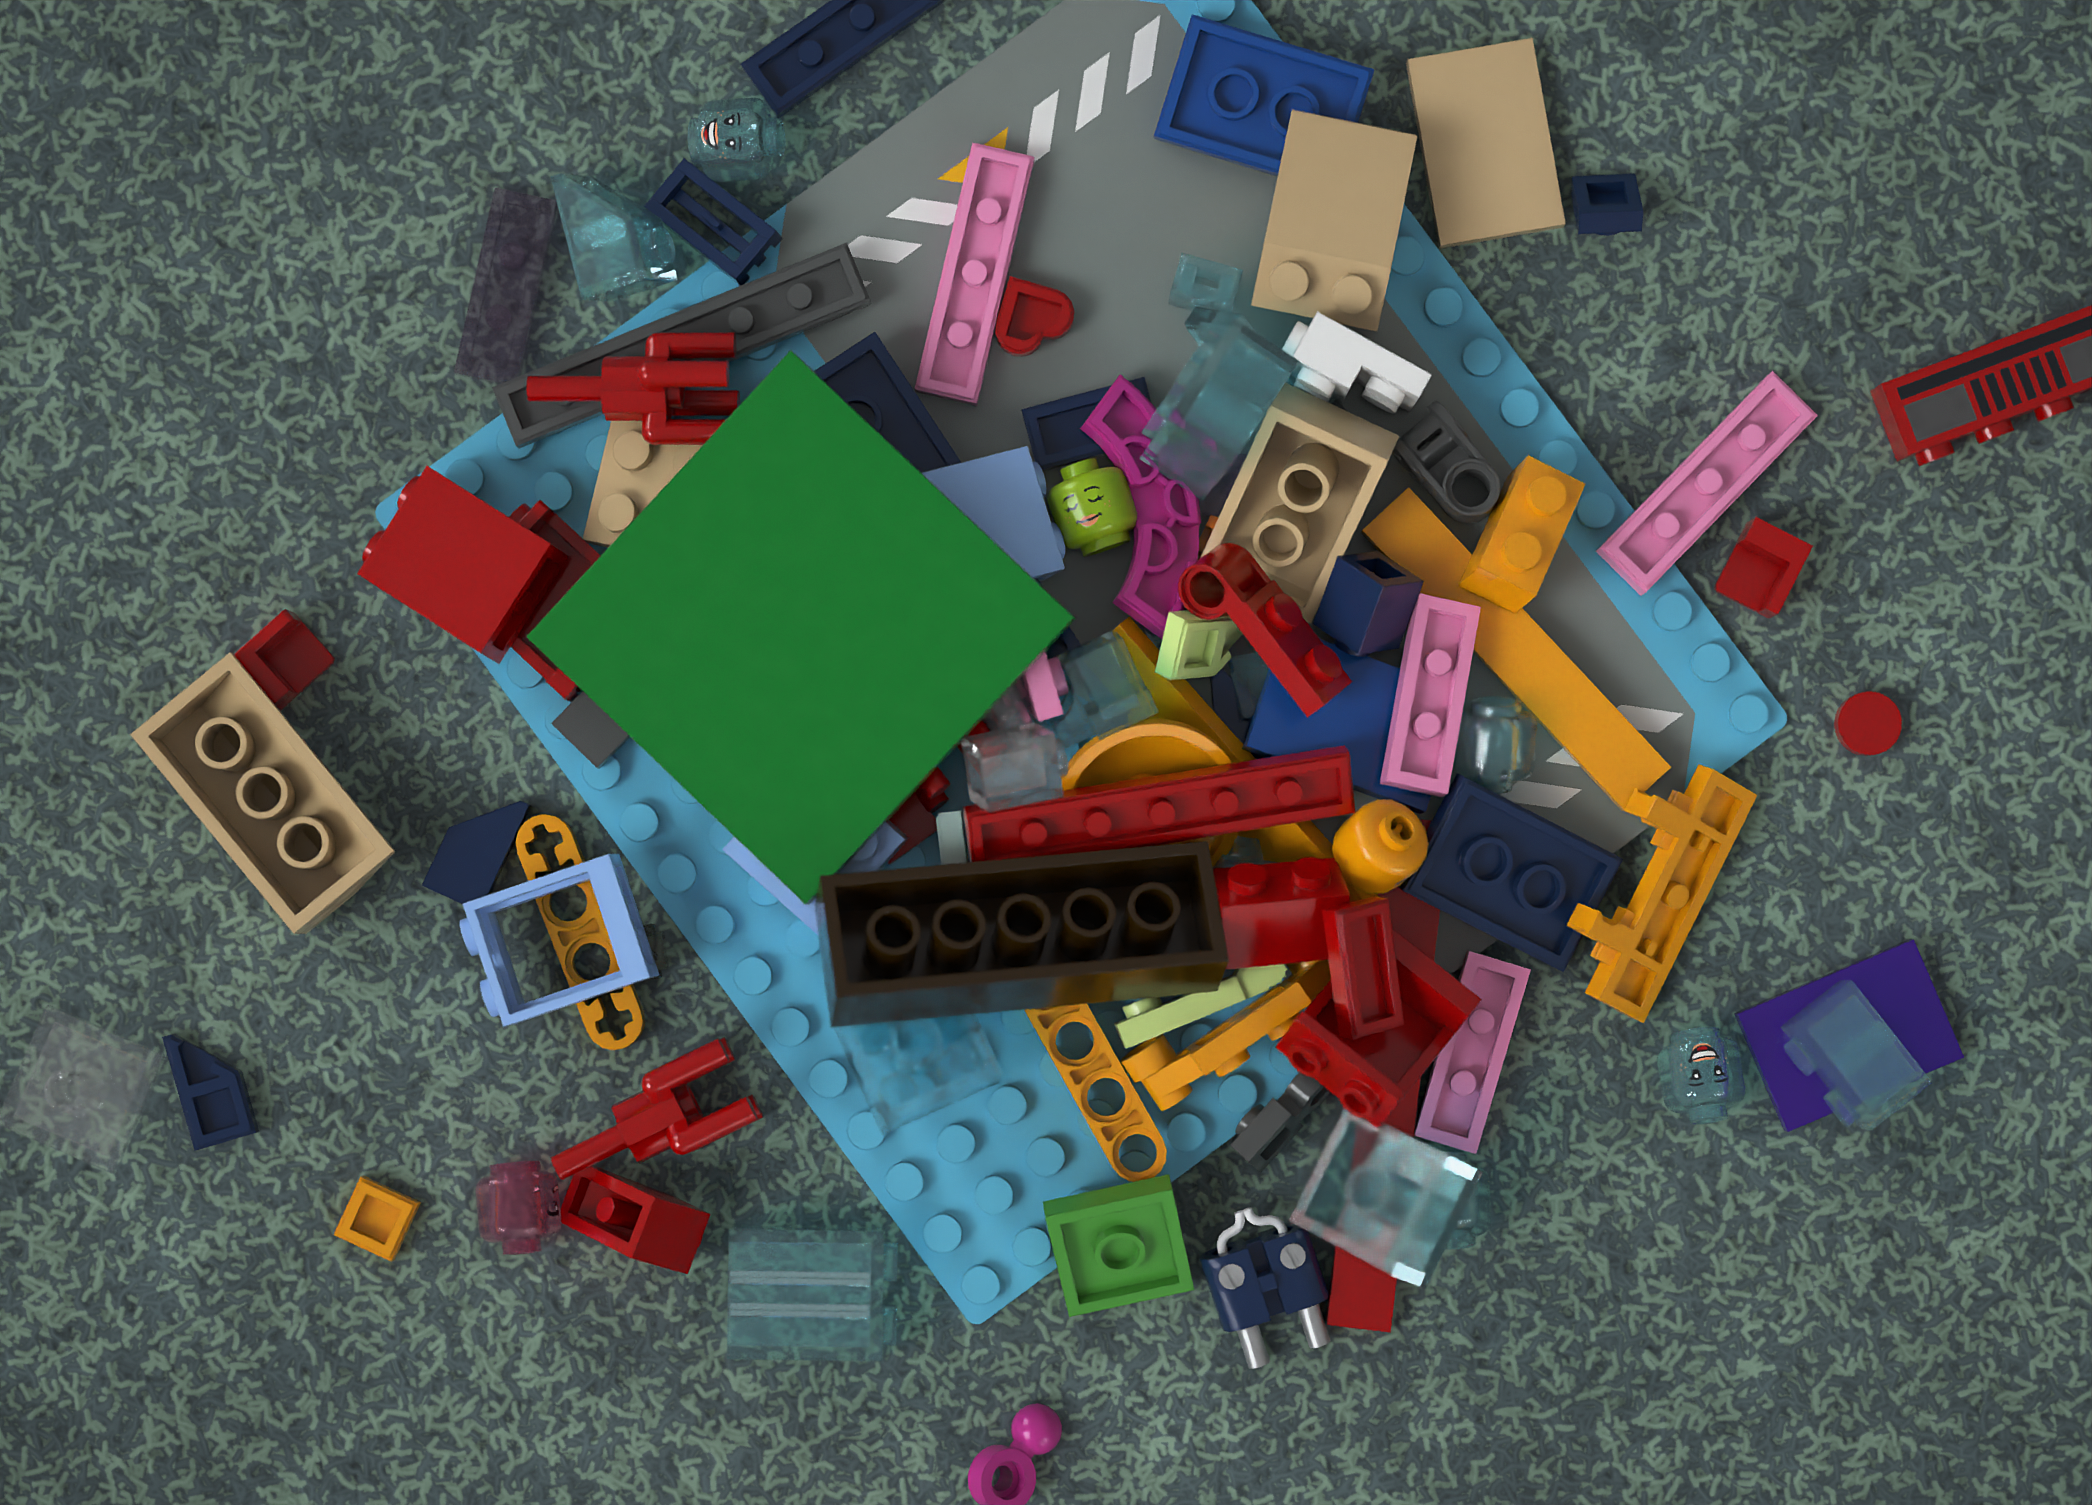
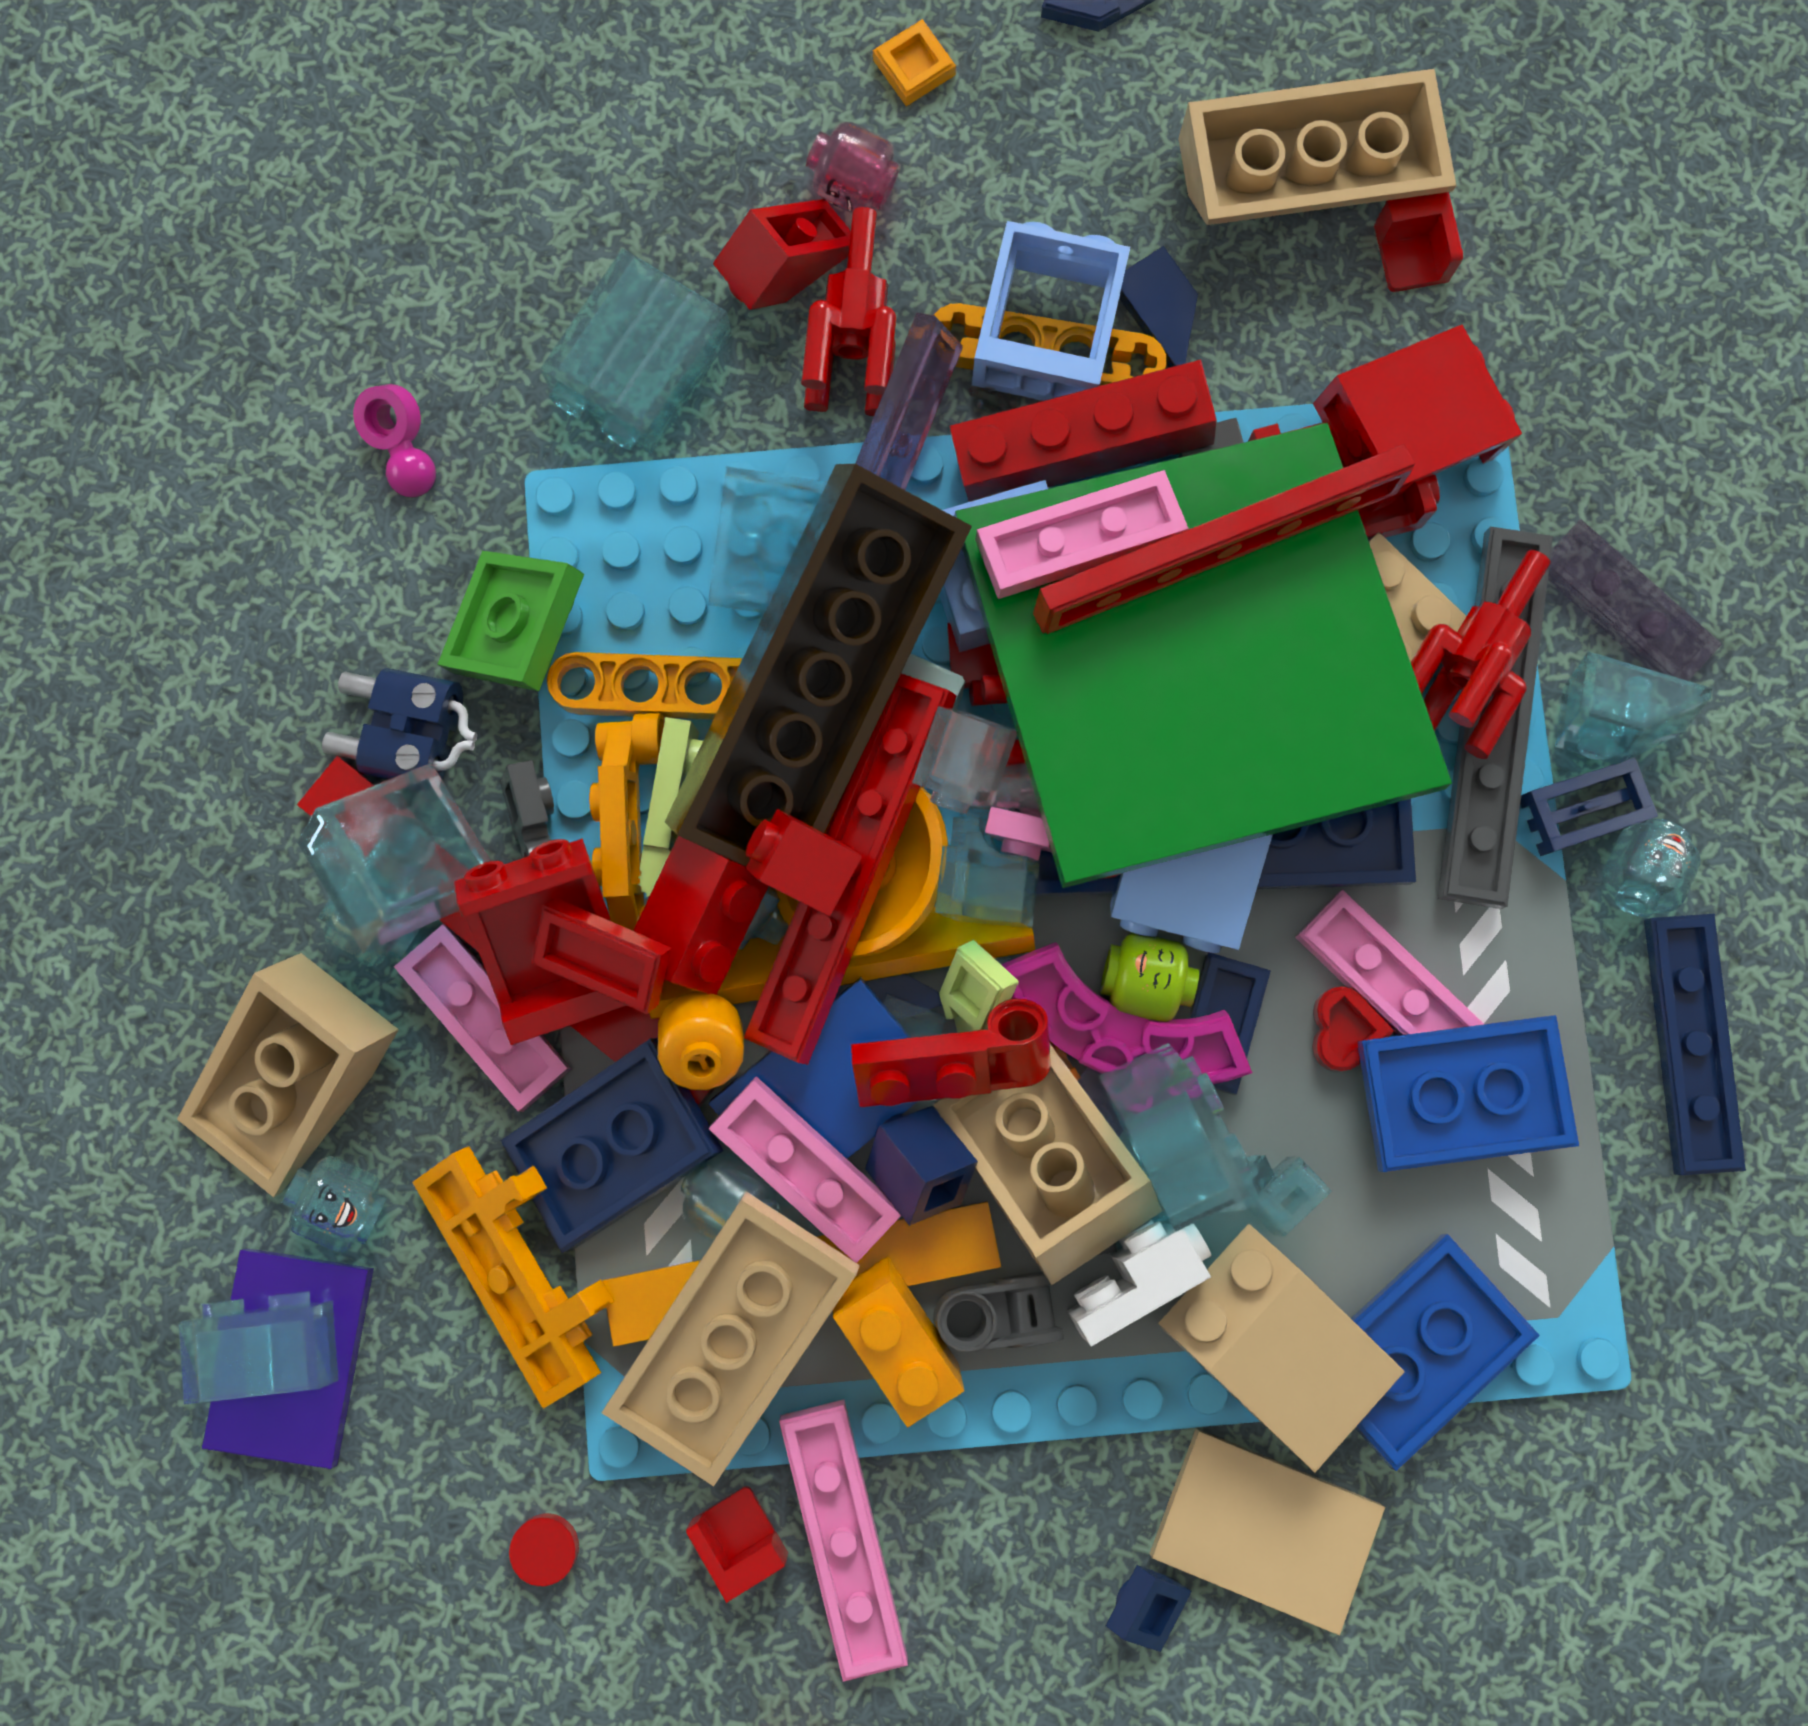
camera: 120 degrees right, 5 degrees down
(656, 845) = (1087, 432): none -> red brick
(699, 659) = (1222, 540): none -> red tile
(726, 1012) = (910, 401): none -> clear purple tile
(766, 782) = (1079, 533): none -> bright pink plate
(1028, 186) = (1467, 1093): none -> blue tile
(1186, 845) = (801, 861): none -> red brick
(1604, 670) = (730, 1338): none -> tan plate
(1620, 1189) = (285, 1070): none -> tan slope

